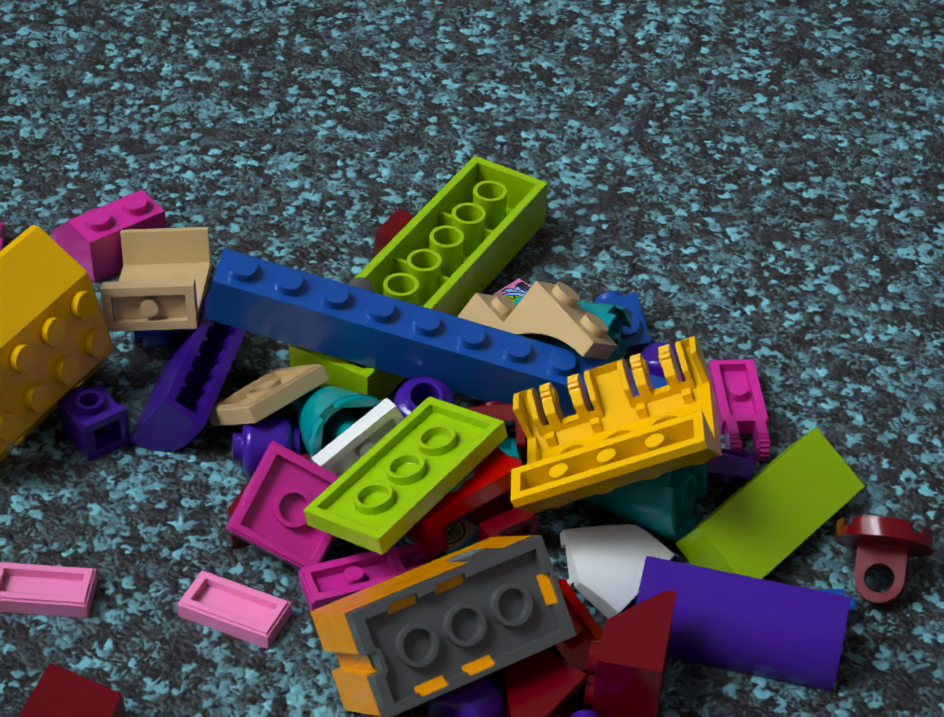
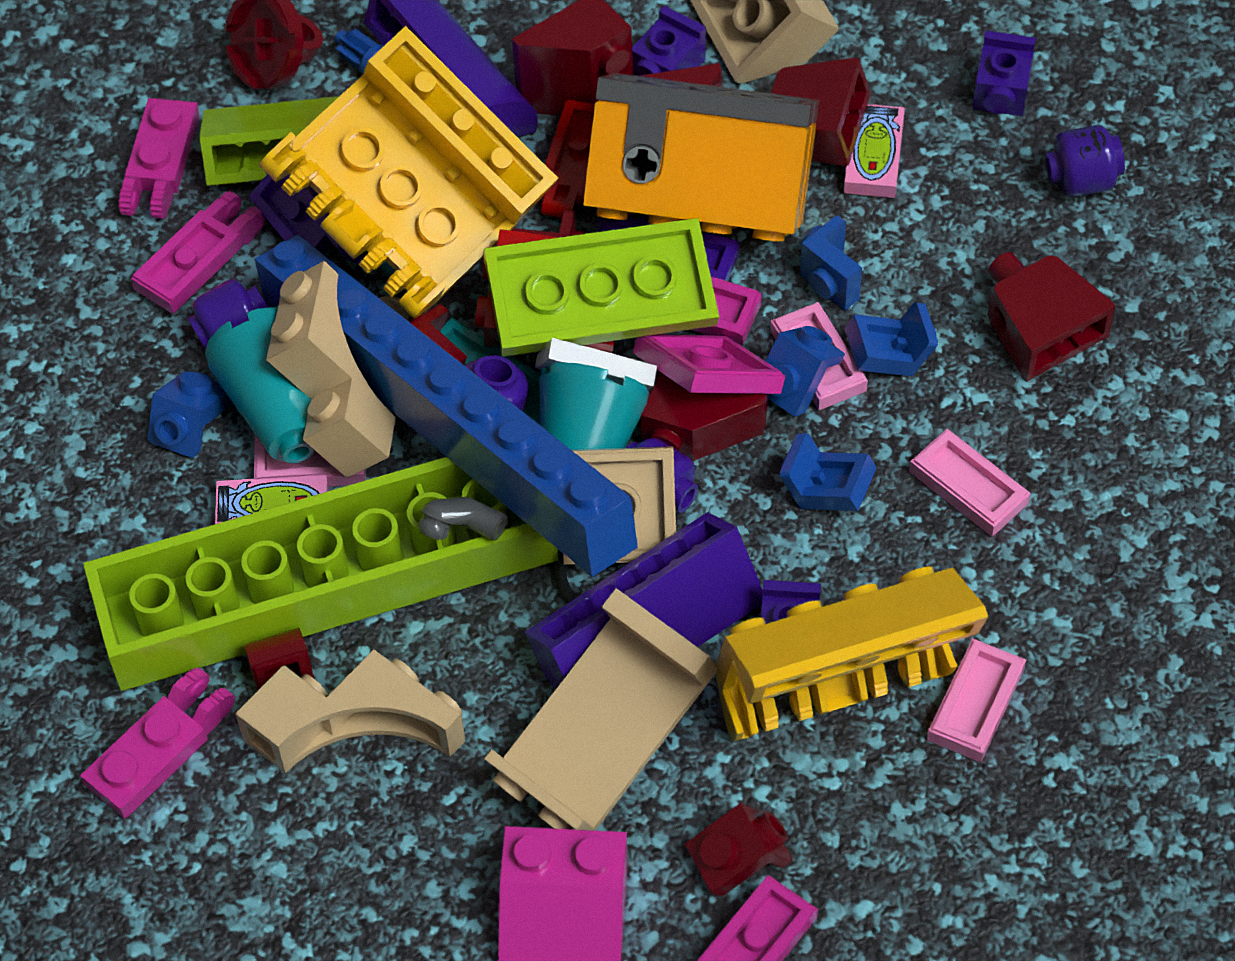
camera: 135 degrees left, 15 degrees up
(147, 518) = (826, 478): none -> blue bracket
(181, 632) = (892, 344): none -> blue bracket
(233, 573) = (803, 359): none -> blue bracket
(280, 659) = (826, 265): none -> blue bracket
(345, 227) = (379, 697): none -> tan arch
(420, 176) = (157, 744): none -> dark pink hinge
(867, 458) = (159, 155): none -> dark pink hinge

